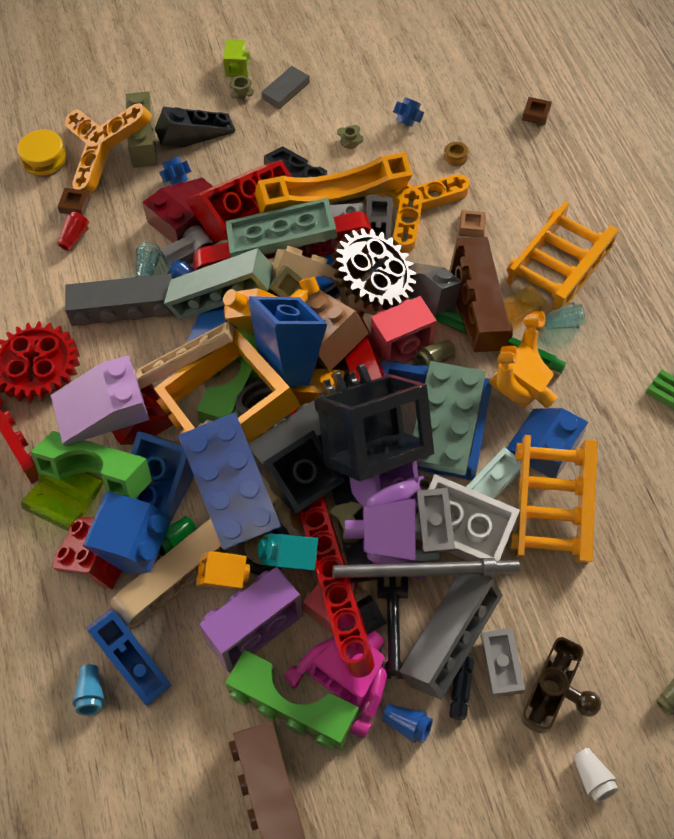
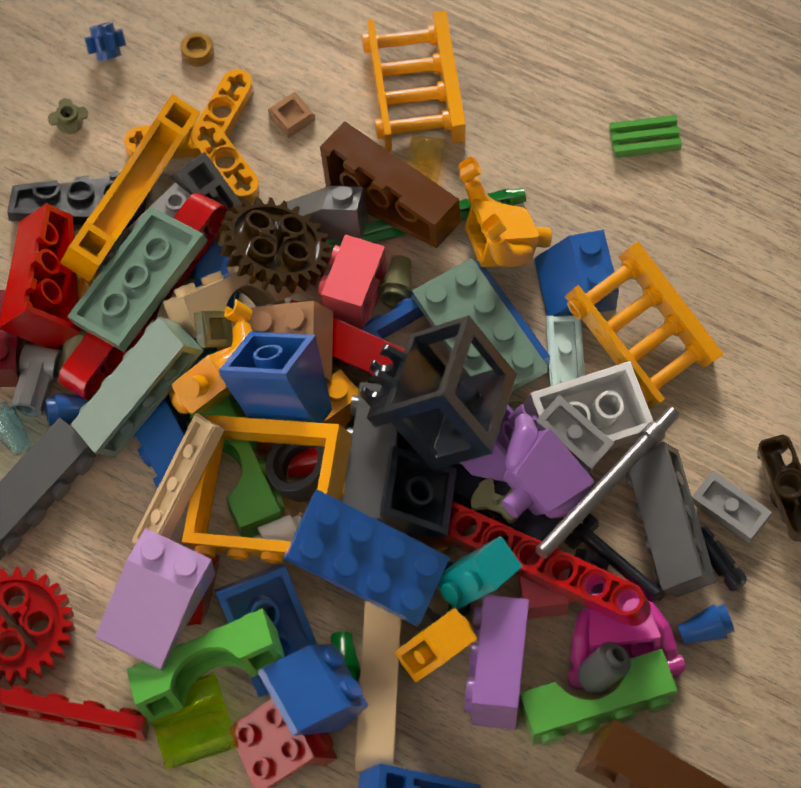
camera: 45 degrees left, 5 degrees up
(309, 683) = (603, 667): none -> dark grey brick
(566, 317) = (479, 139): clear light blue cone -> none

